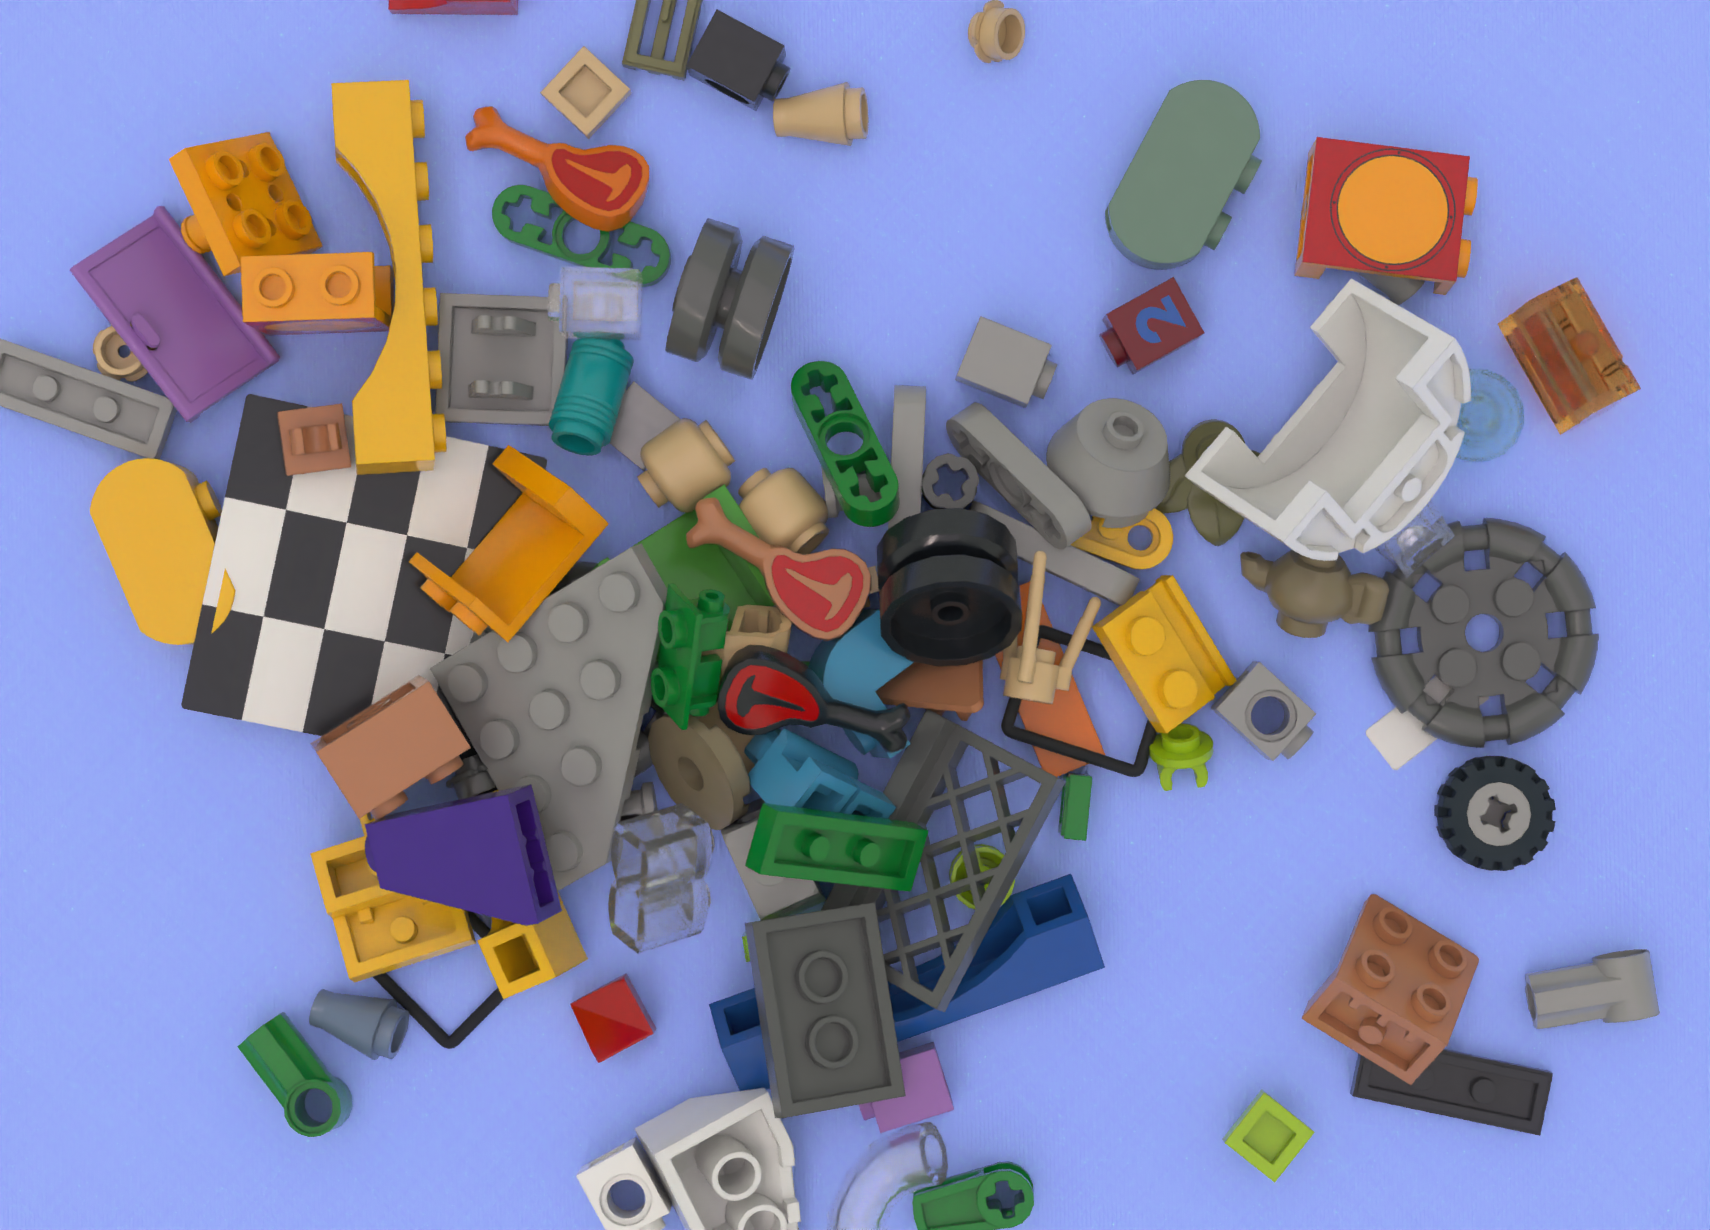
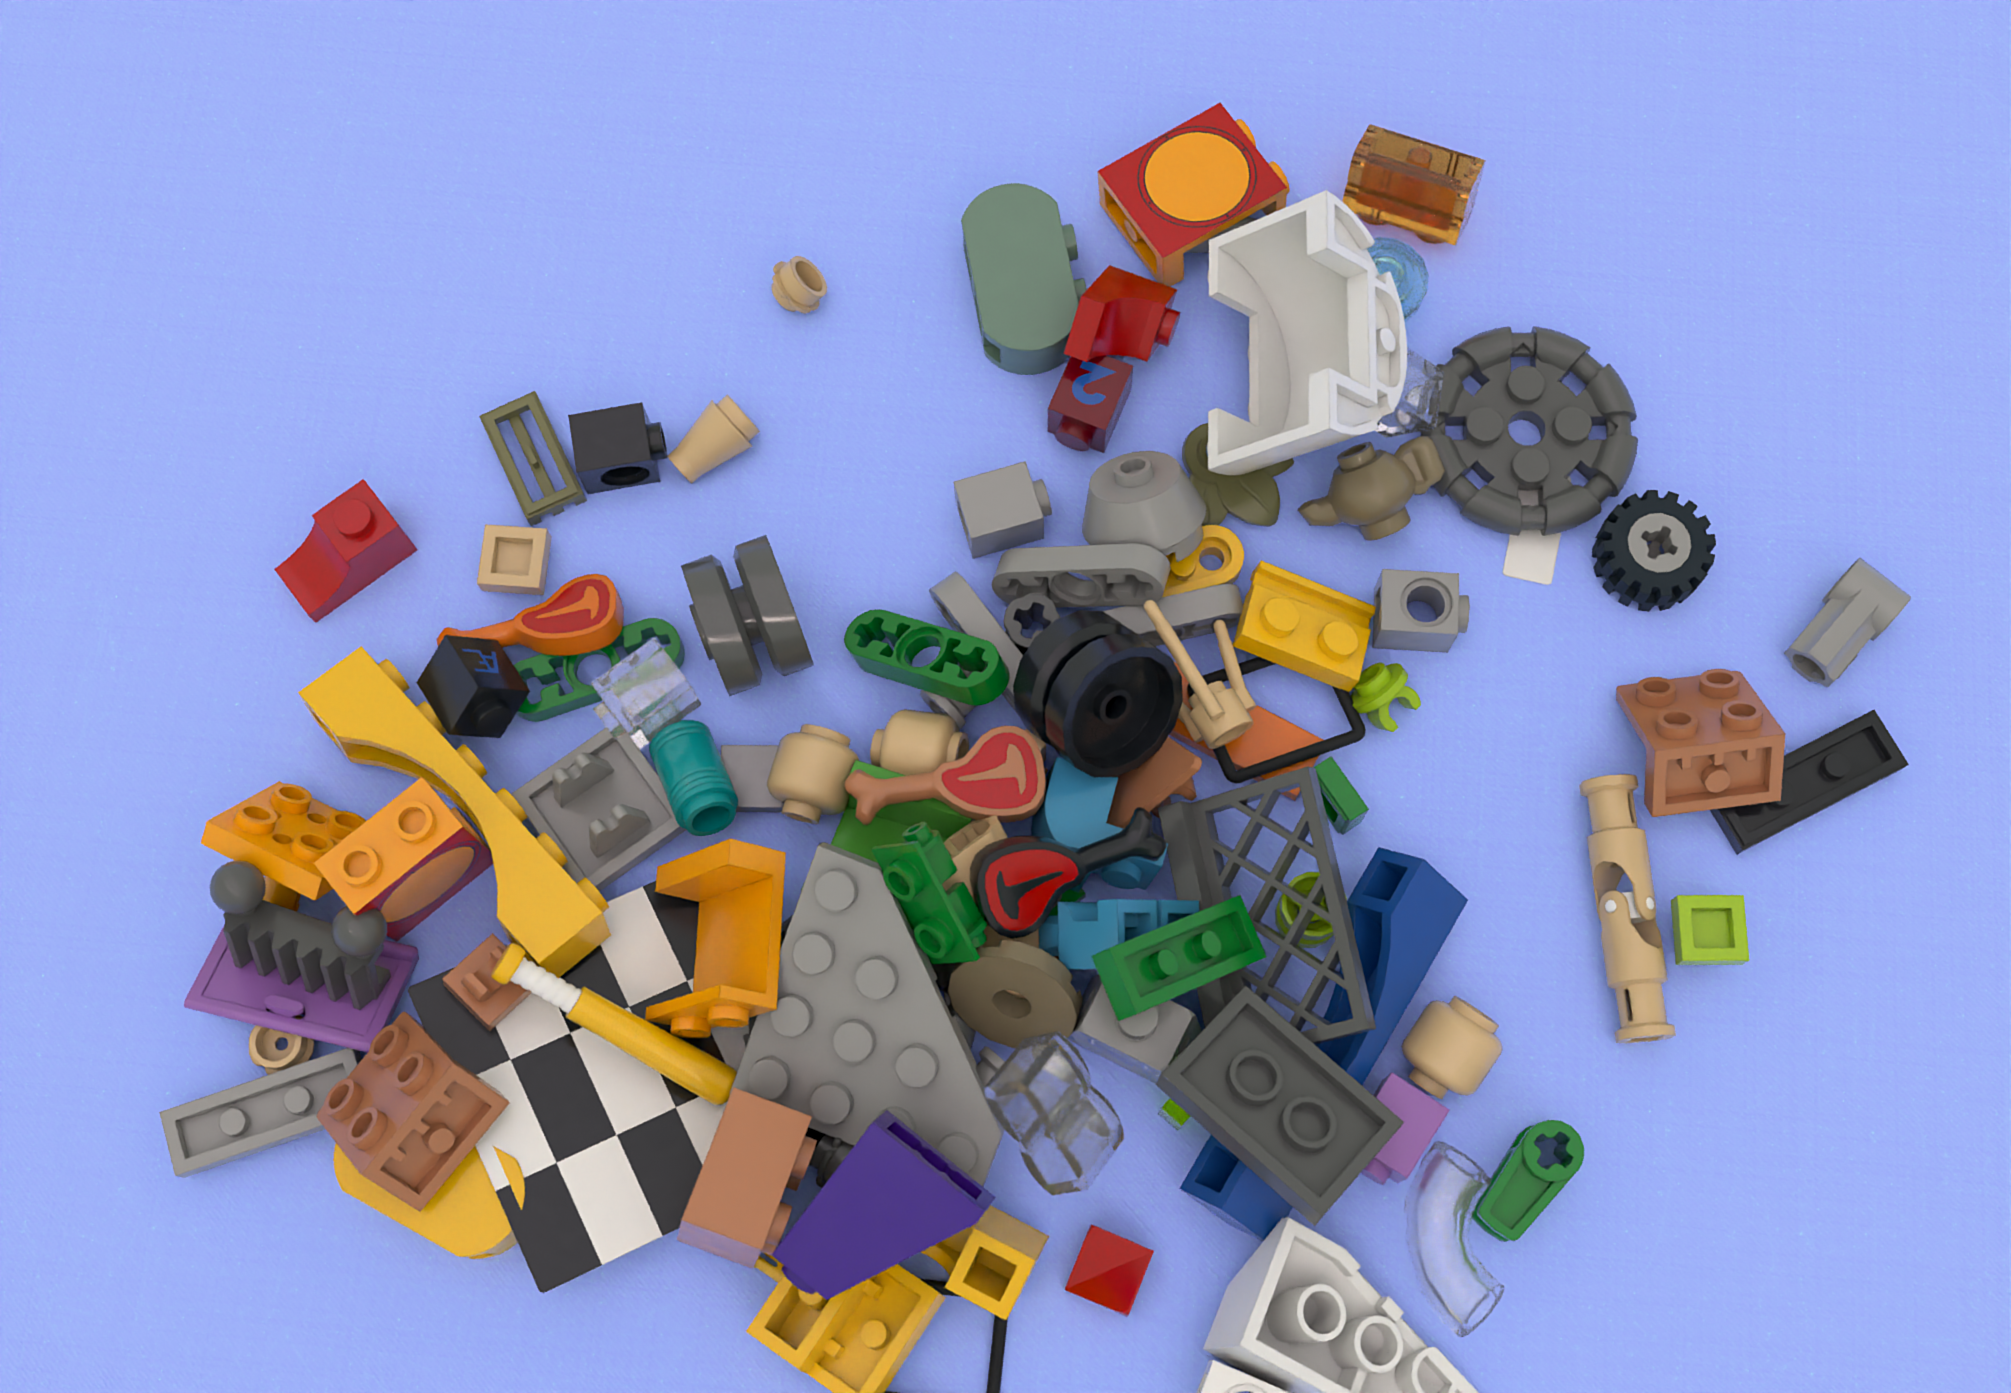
camera: 30 degrees left, 15 degrees down
(179, 494) = (409, 1112): none -> nougat bracket
(190, 290) = (299, 944): none -> dark grey gear
(394, 577) = (632, 1034): none -> yellow piece
(472, 184) = (472, 687): none -> black brick
(1000, 1063) = (1451, 1048): none -> tan head
(1199, 1106) = (1628, 919): none -> tan piece
(1232, 282) = (1122, 317): none -> red arch

